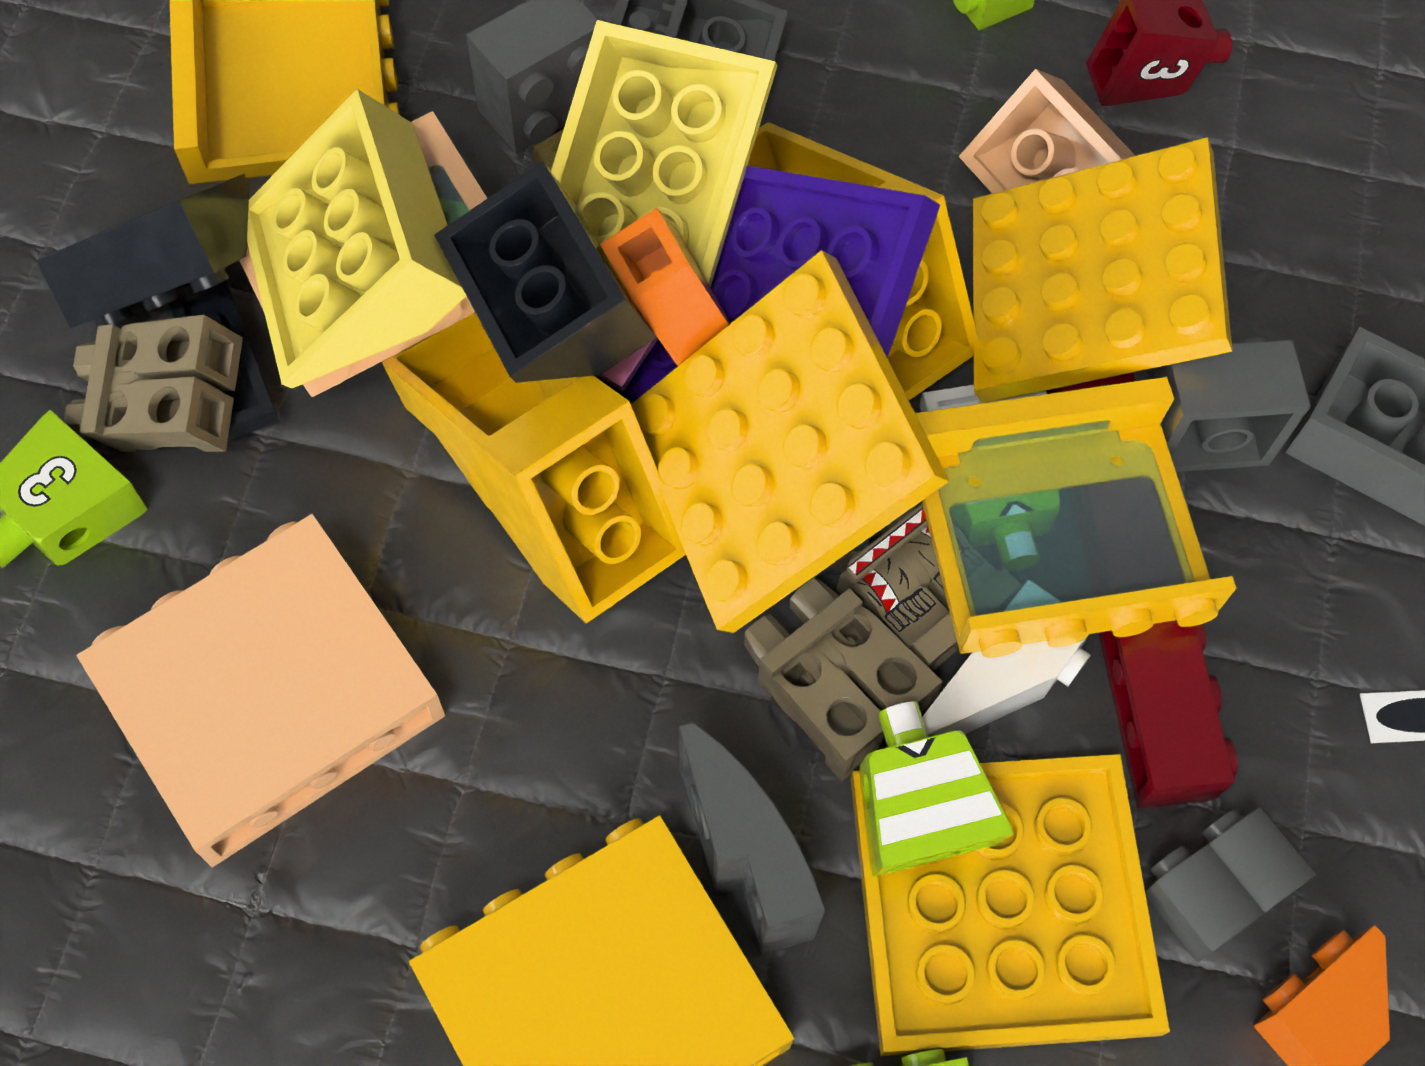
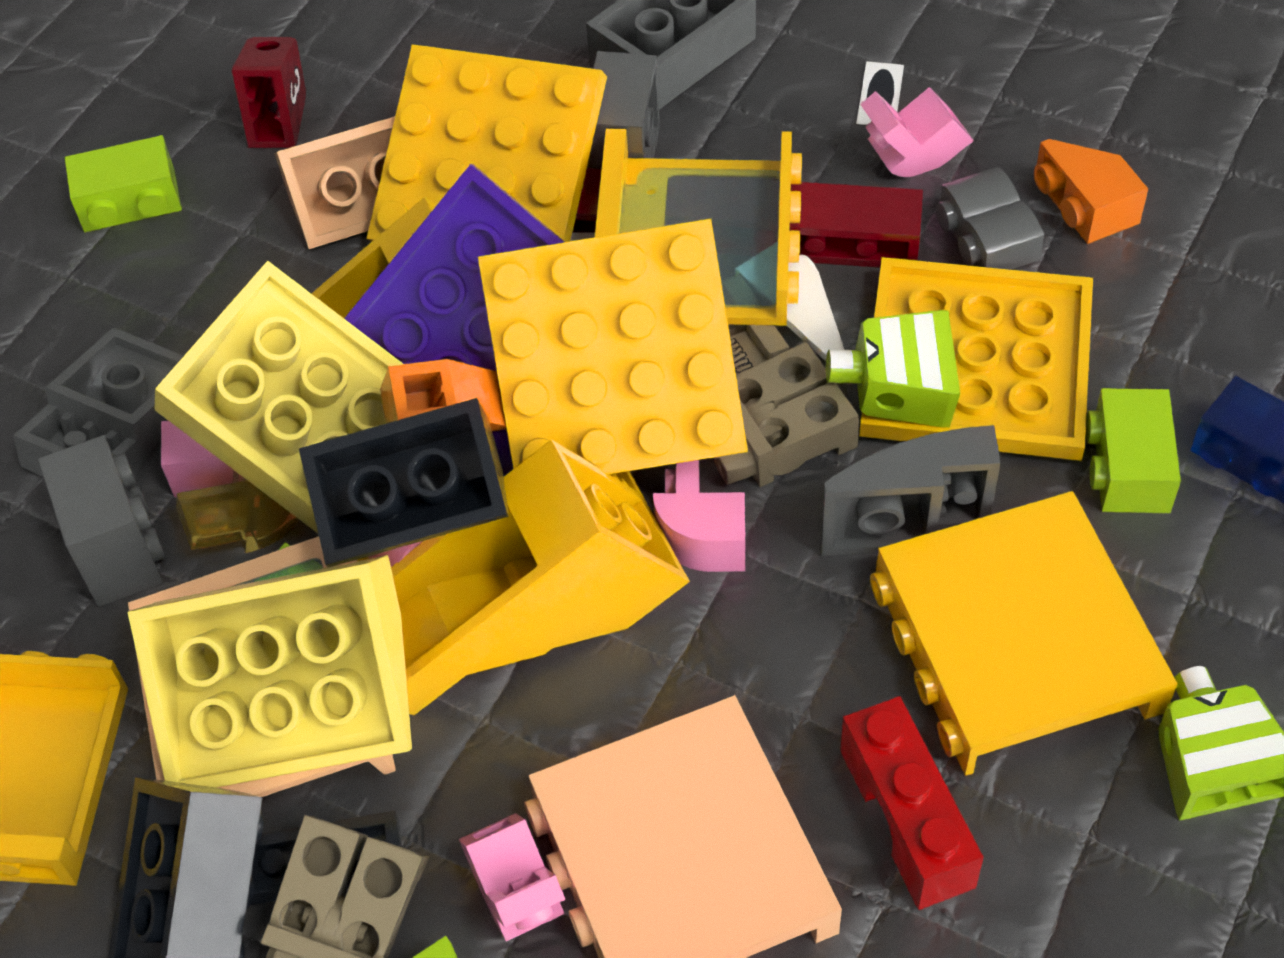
camera: 70 degrees left, 10 degrees down
(219, 522) = (513, 876): none -> bright pink brick
(310, 927) = (926, 826): none -> red arch
(667, 626) = (701, 527): none -> bright pink brick
(1344, 766) = (918, 136): none -> bright pink brick

